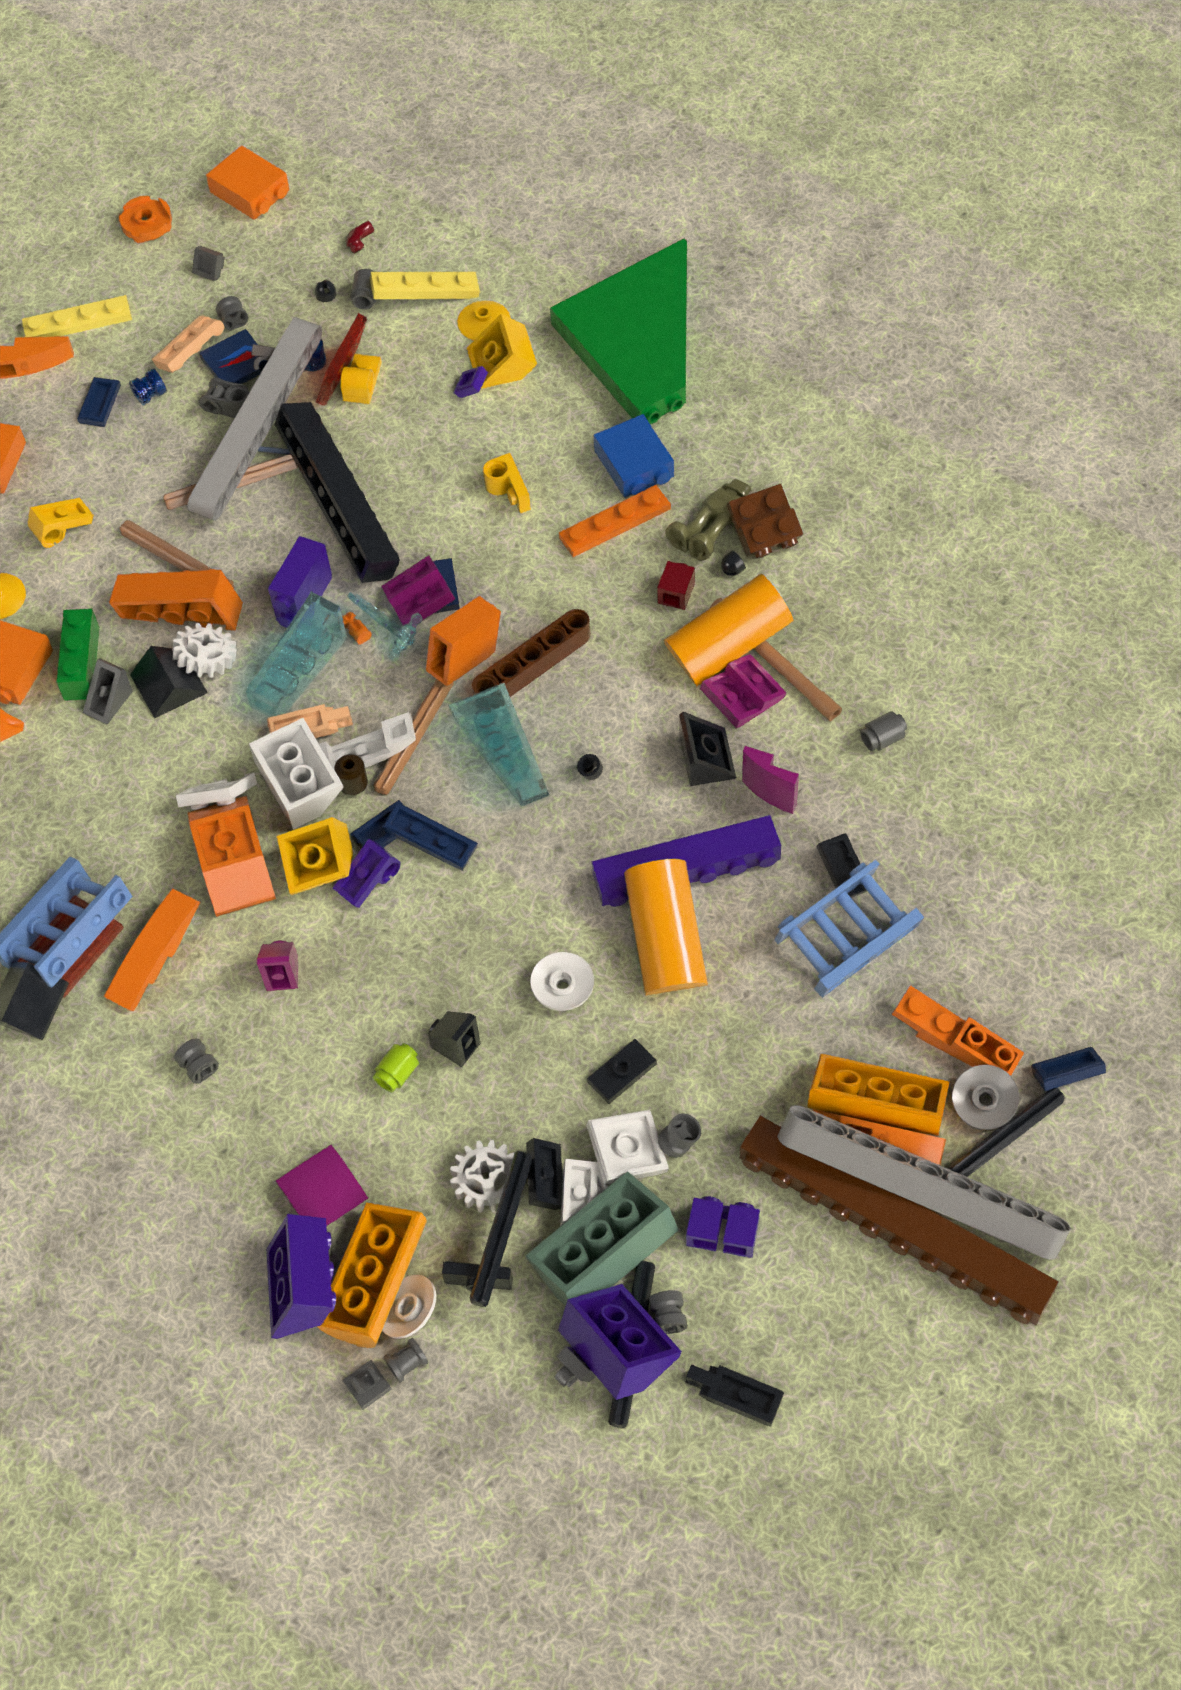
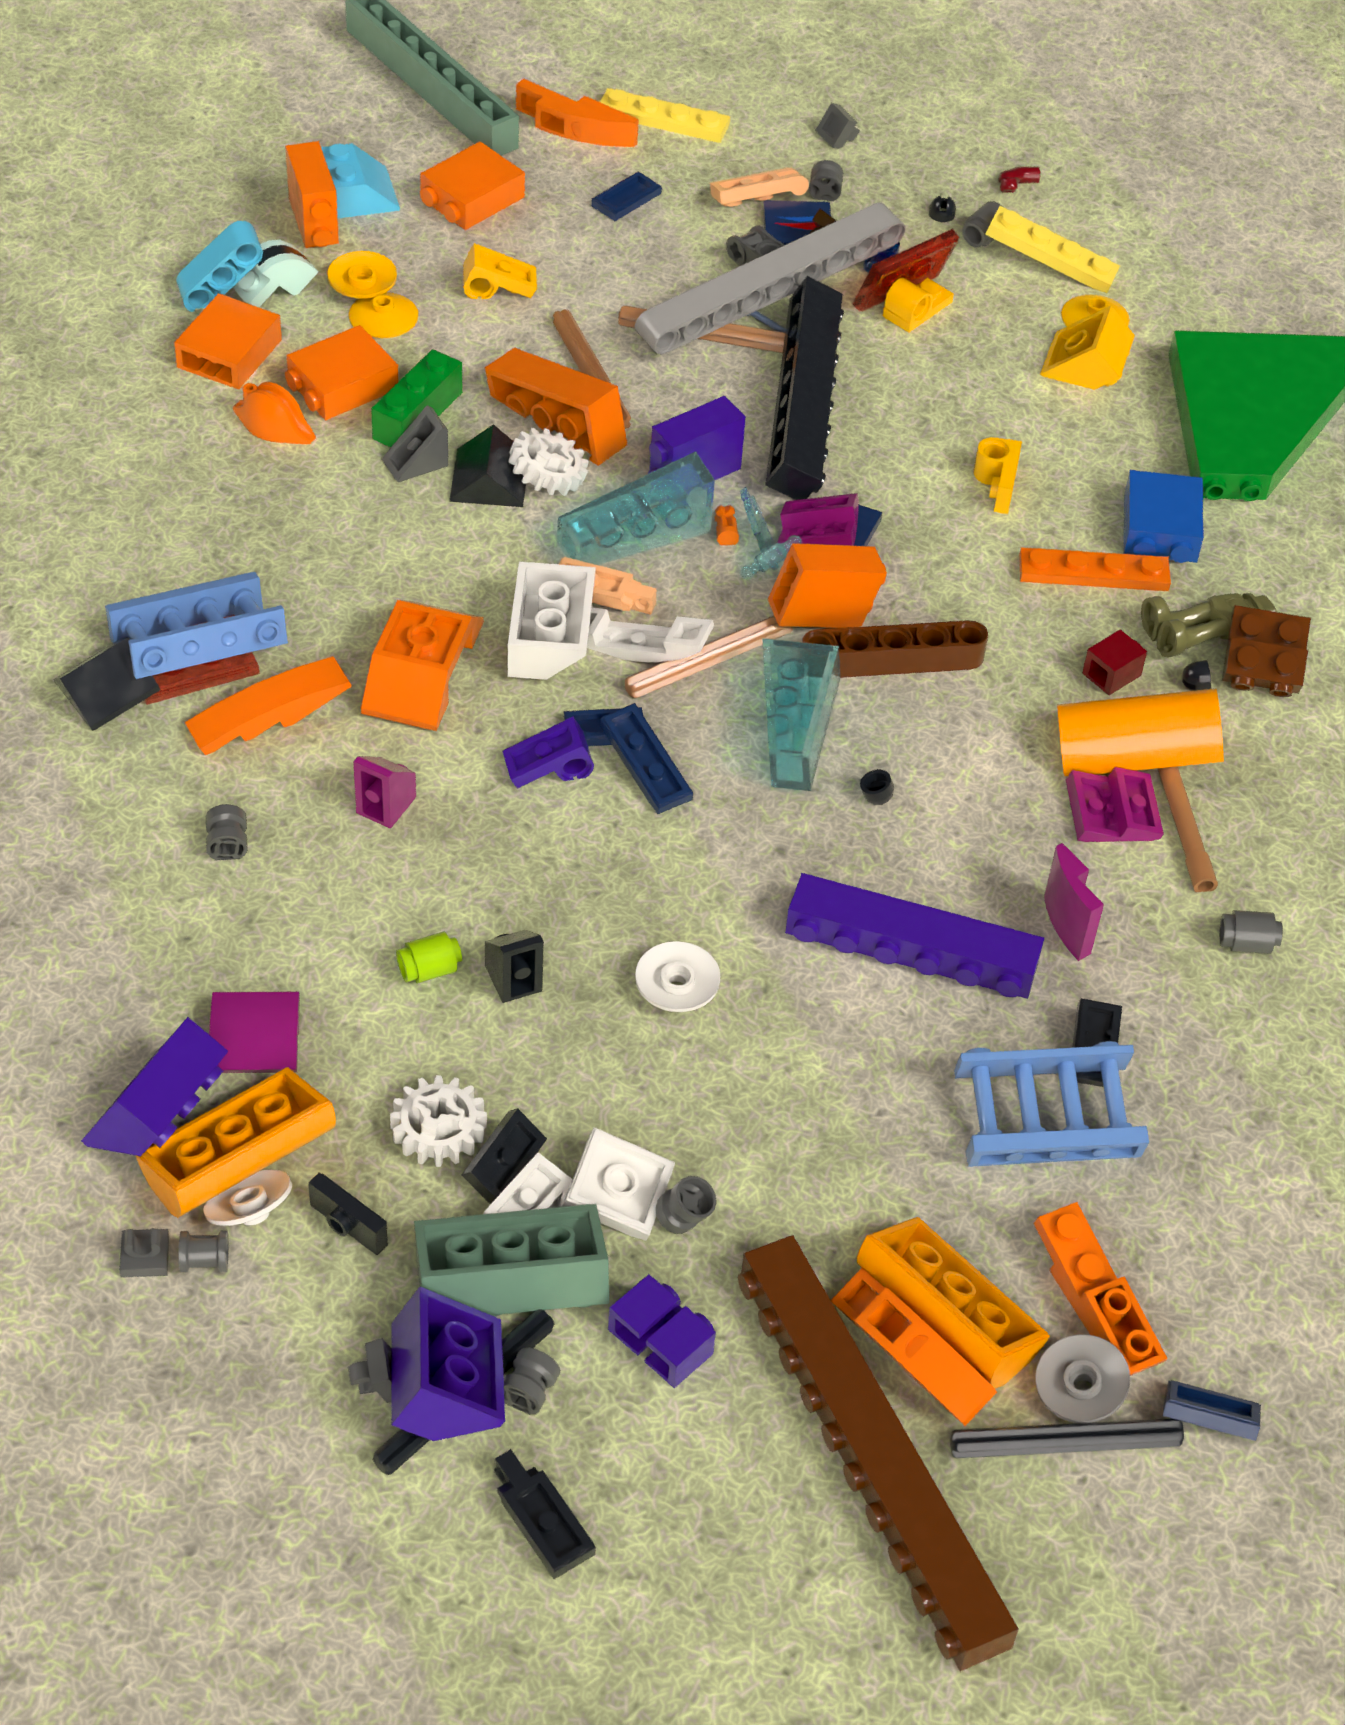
camera: 25 degrees right, 10 degrees down
(148, 386) = (678, 204): clear blue wheel -> none
(155, 226) = (792, 64): orange plate -> none
(218, 791) = (456, 598): white wing -> none
(248, 182) = (937, 76): orange brick -> none
(315, 854) = (507, 702): yellow slope -> none
(352, 774) = (607, 653): dark brown brick -> none
(470, 382) = (1033, 361): dark purple tile -> none
(500, 1229) = (406, 1175): black axle -> none
(621, 1071) = (675, 1107): black plate -> none
(665, 926) = (837, 983): light orange brick -> none
(705, 750) = (1021, 838): black slope -> none
(924, 1182) = (935, 1422): light grey beam -> none

